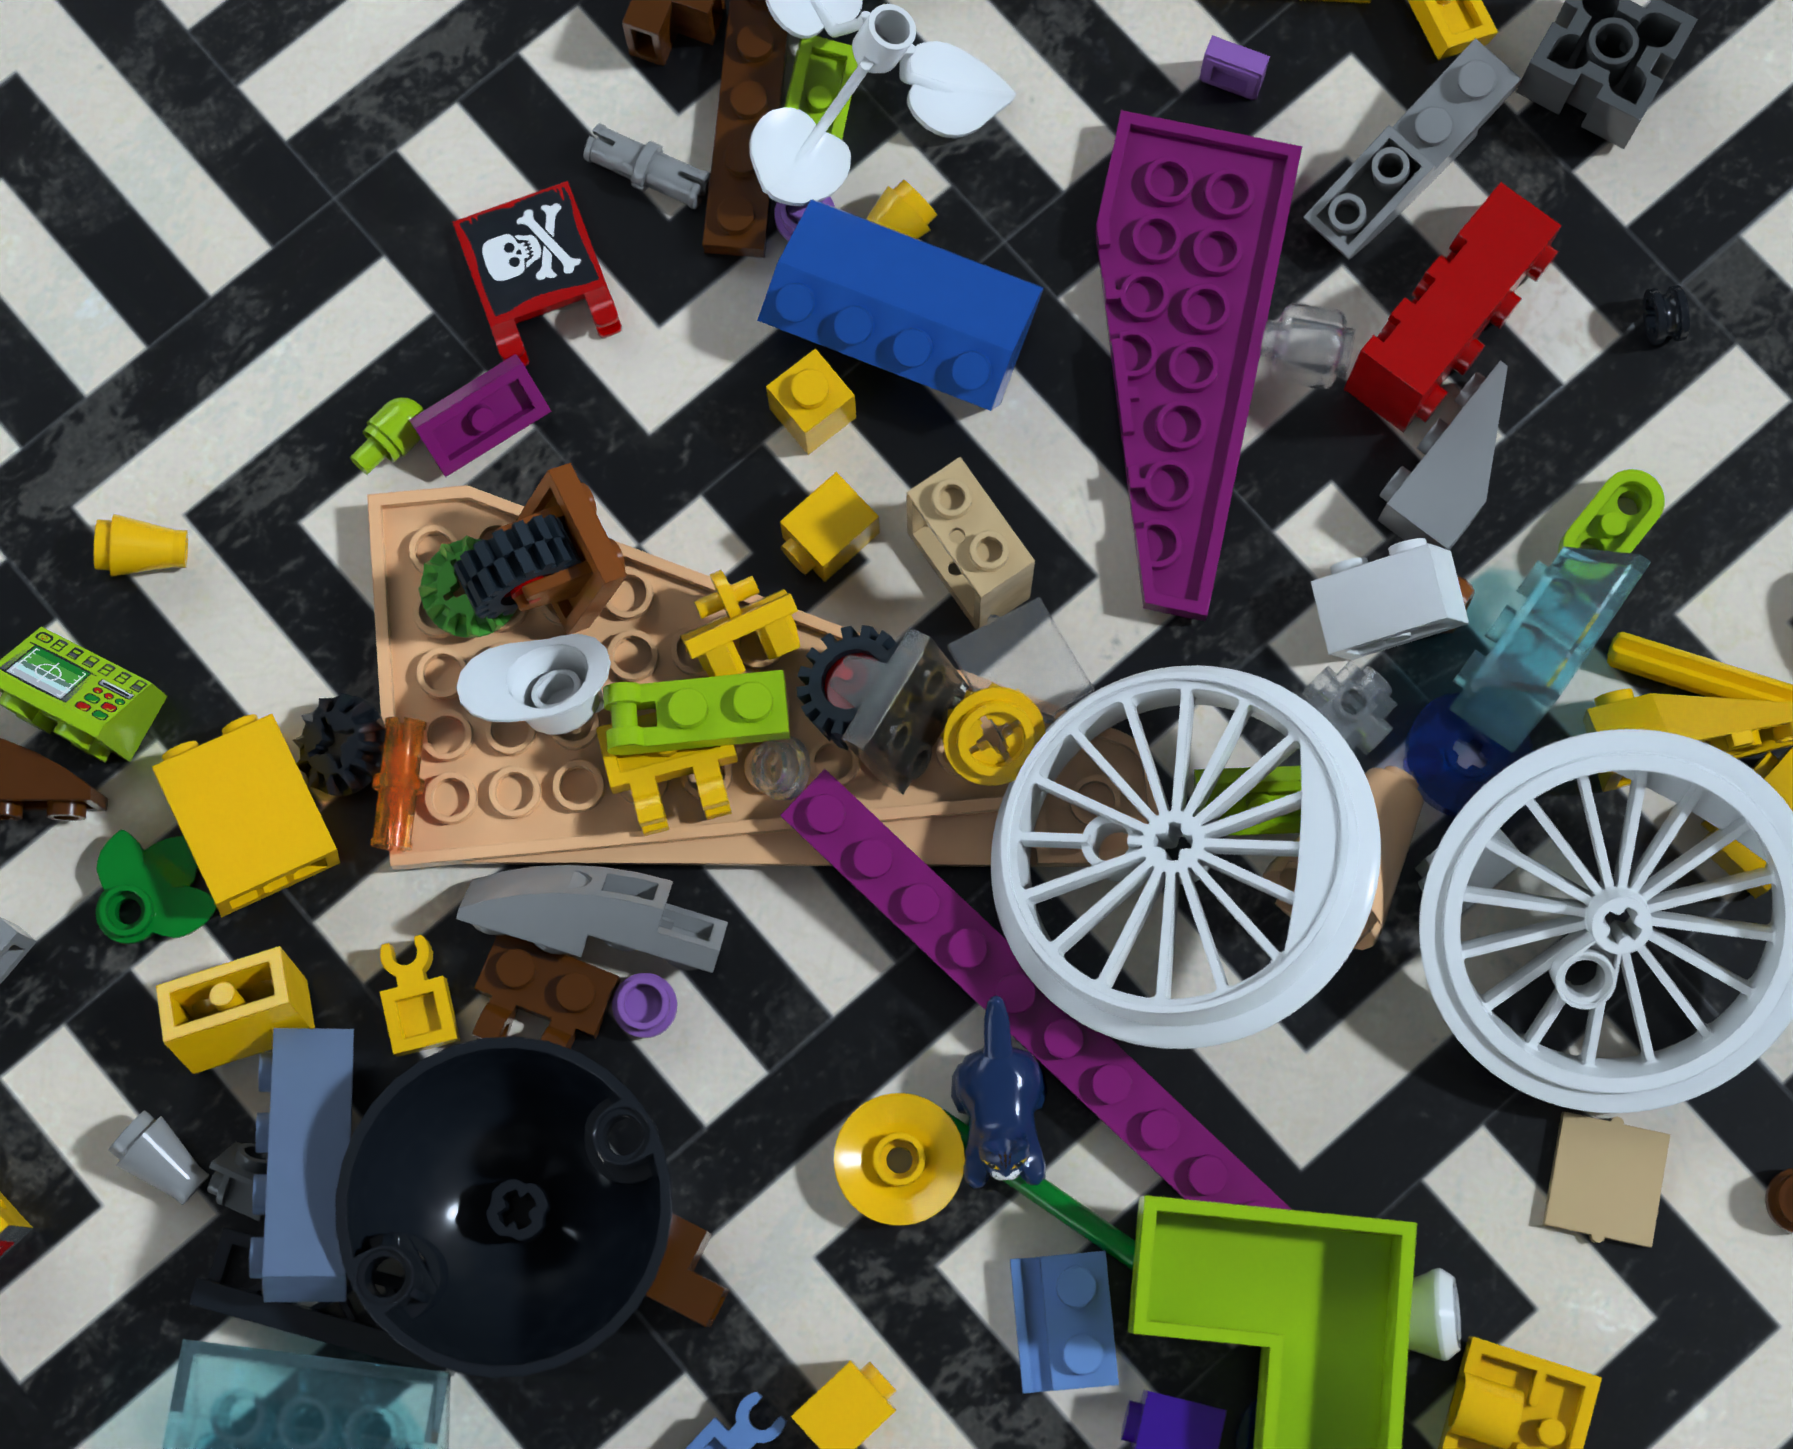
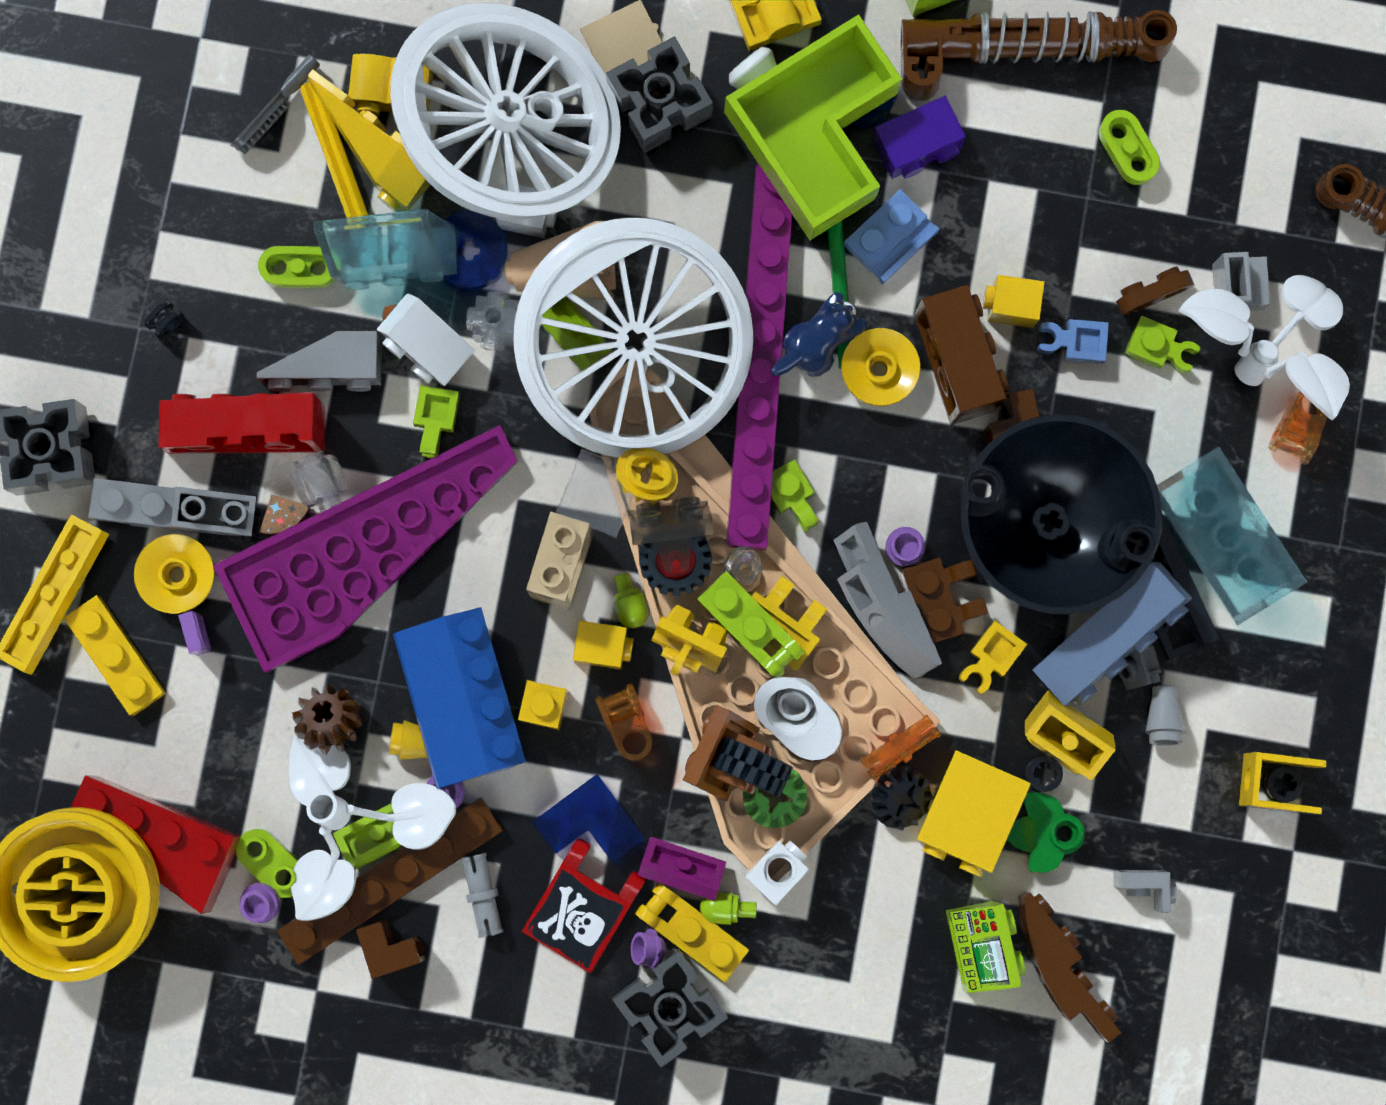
camera: 135 degrees left, 5 degrees up
(137, 546) = (886, 986): yellow cone -> none
(224, 927) = (1052, 765): none -> black bush
(304, 245) = (695, 1010): none -> dark grey brick
(364, 489) = (772, 889): none -> white brick
(368, 378) = (693, 933): none -> yellow plate
(421, 303) = (647, 949): none -> medium lavender plate
(638, 371) = (591, 809): none -> clear blue plate
(712, 485) = (625, 721): none -> clear orange piece
(825, 1270) = (961, 354): none -> reddish brown brick
(836, 916) = (790, 491): none -> lime plate
(854, 604) = (629, 603): none -> lime cylinder
(997, 160) = (320, 707): none -> reddish brown gear
(1285, 552) = (435, 413): none -> lime plate
(1302, 275) = (282, 515): none -> medium nougat tile
(1331, 71) = (158, 562): none -> yellow dish
(1529, 1133) = (668, 74): none -> dark grey brick

